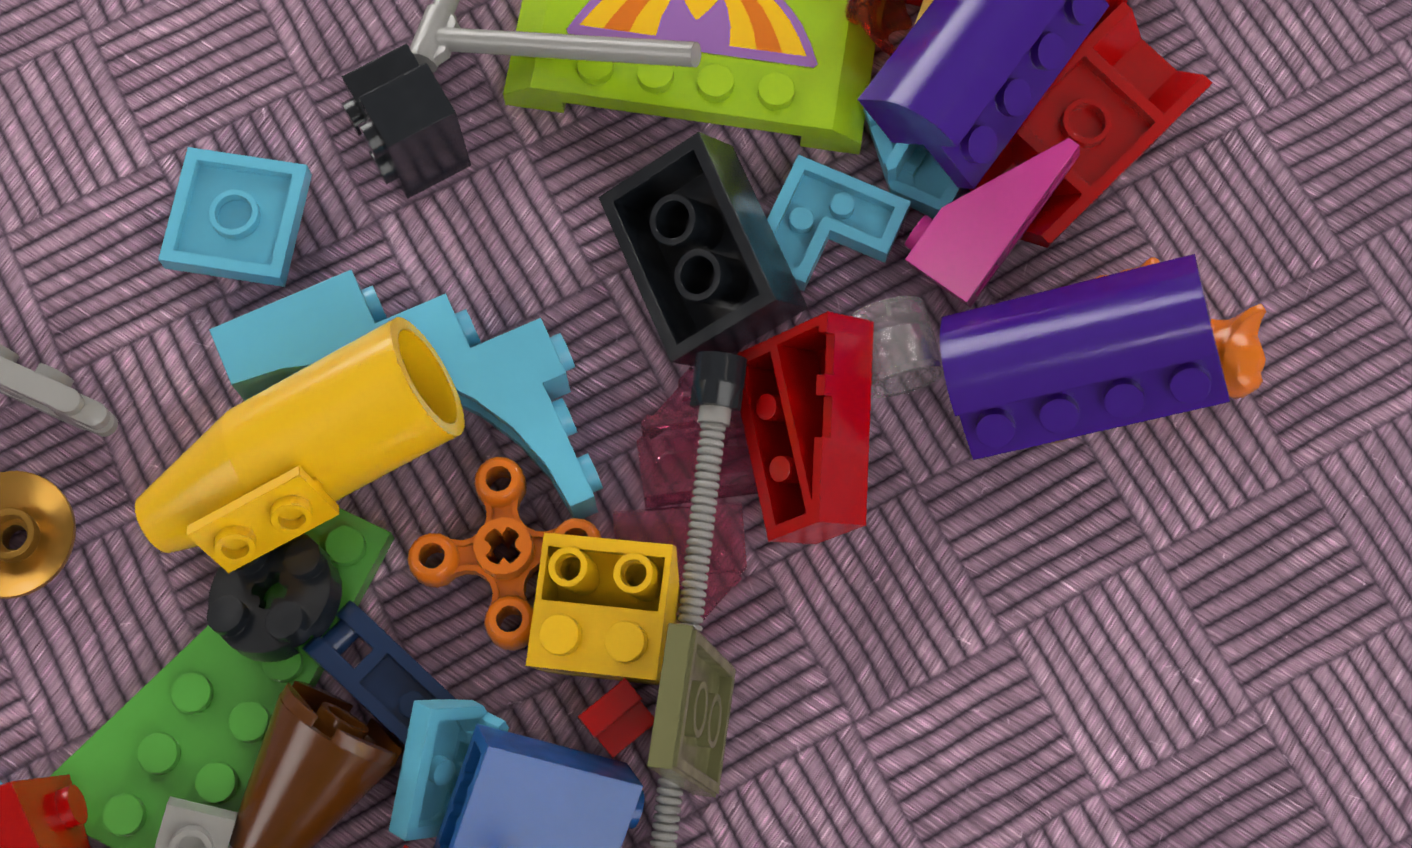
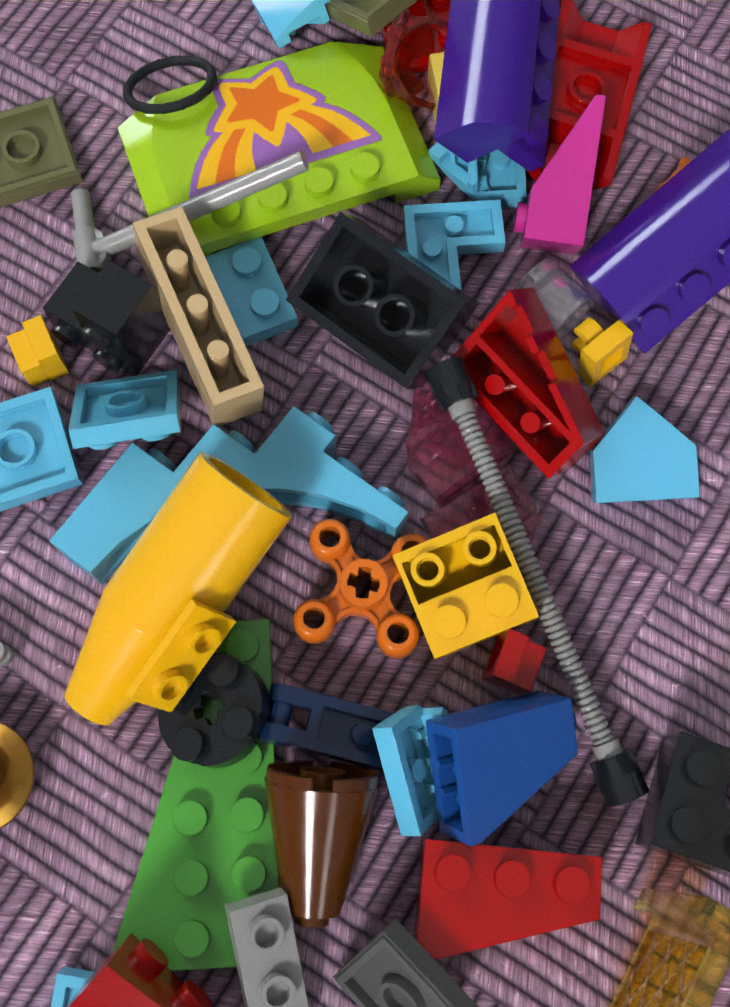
camera: 30 degrees left, 0 degrees up
(315, 121) = (37, 352): none -> yellow piece
(367, 230) = (126, 410): none -> medium azure plate
(490, 170) = (198, 317): none -> tan brick
(556, 164) = (253, 291): none -> medium azure plate
(691, 712) = (579, 621): olive tile -> none
(895, 576) = (643, 459): none -> medium azure slope
(920, 430) = (600, 349): none -> yellow tile

